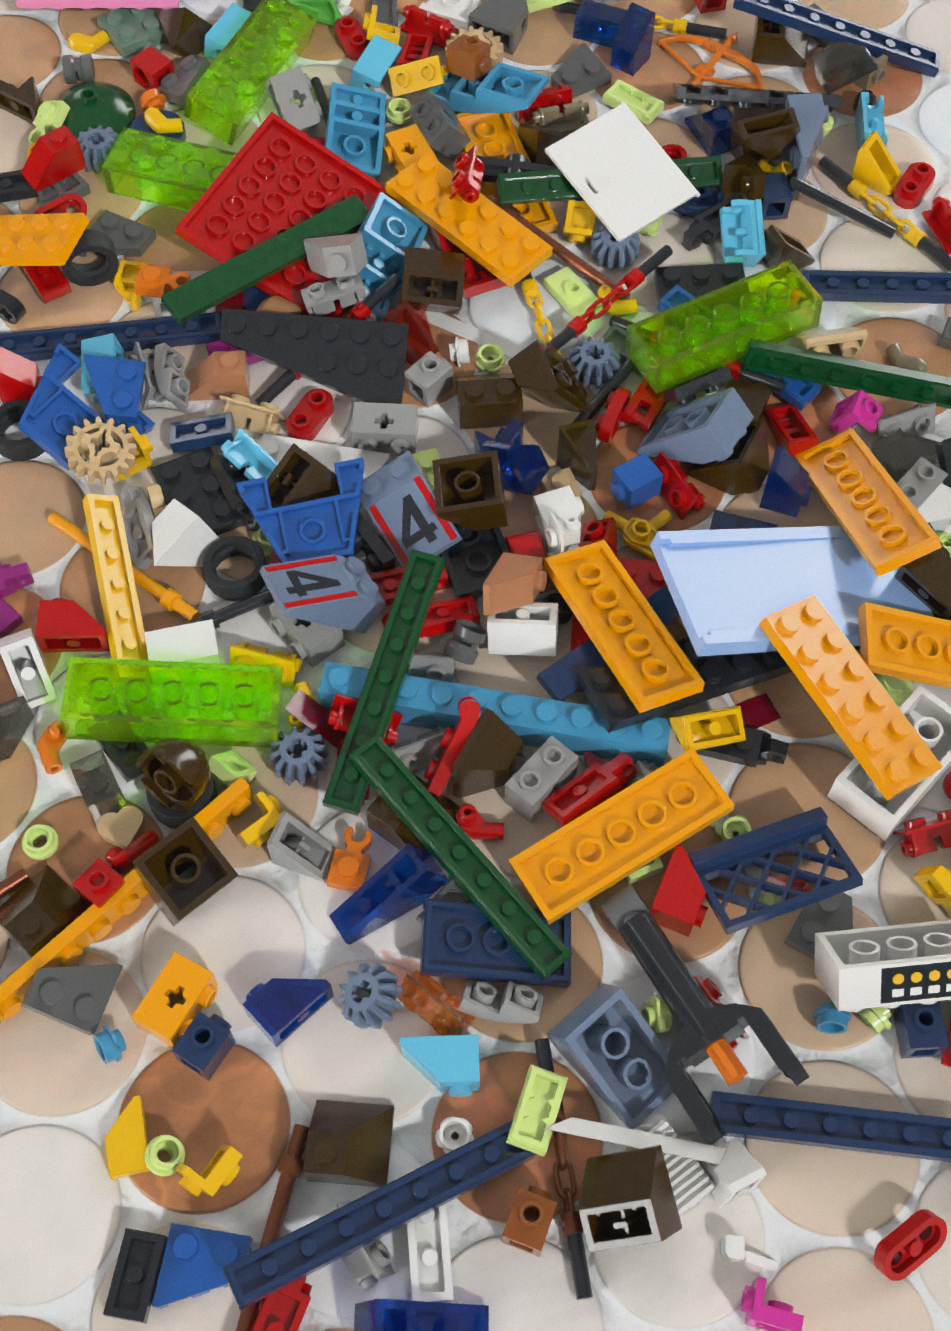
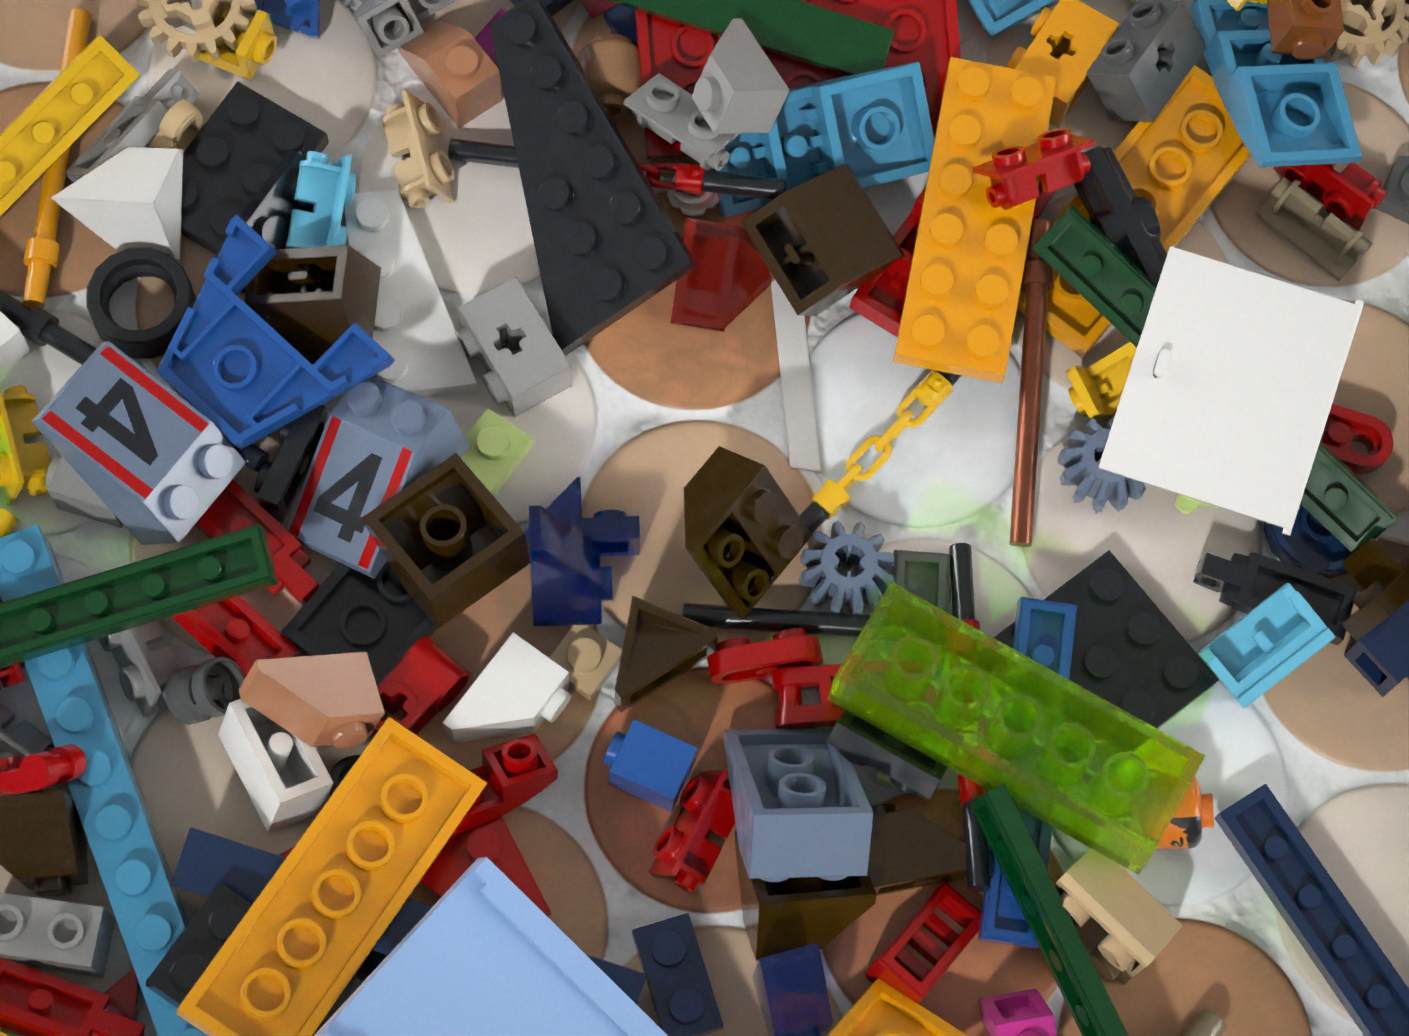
camera: 50 degrees right, 10 degrees up
(202, 432) = (339, 108): dark blue plate -> none
(311, 412) = (476, 233): red plate -> none
(429, 379) = (648, 352): light grey brick -> none
(459, 351) = (734, 363): white plate -> none
(488, 400) = (663, 446): dark brown slope -> none
(490, 358) = (757, 401): yellowish green plate -> none
(536, 140) = (1233, 231): dark brown slope -> none
(562, 534) = (449, 722): white hinge -> none
(571, 292) = (969, 459): yellowish green plate -> none
(619, 307) = (991, 532): yellow arm -> none
(631, 281) = (1046, 531): red piece -> none
(639, 532) = (566, 831): yellow piece -> none
(784, 247) = (1293, 735): dark brown slope -> none

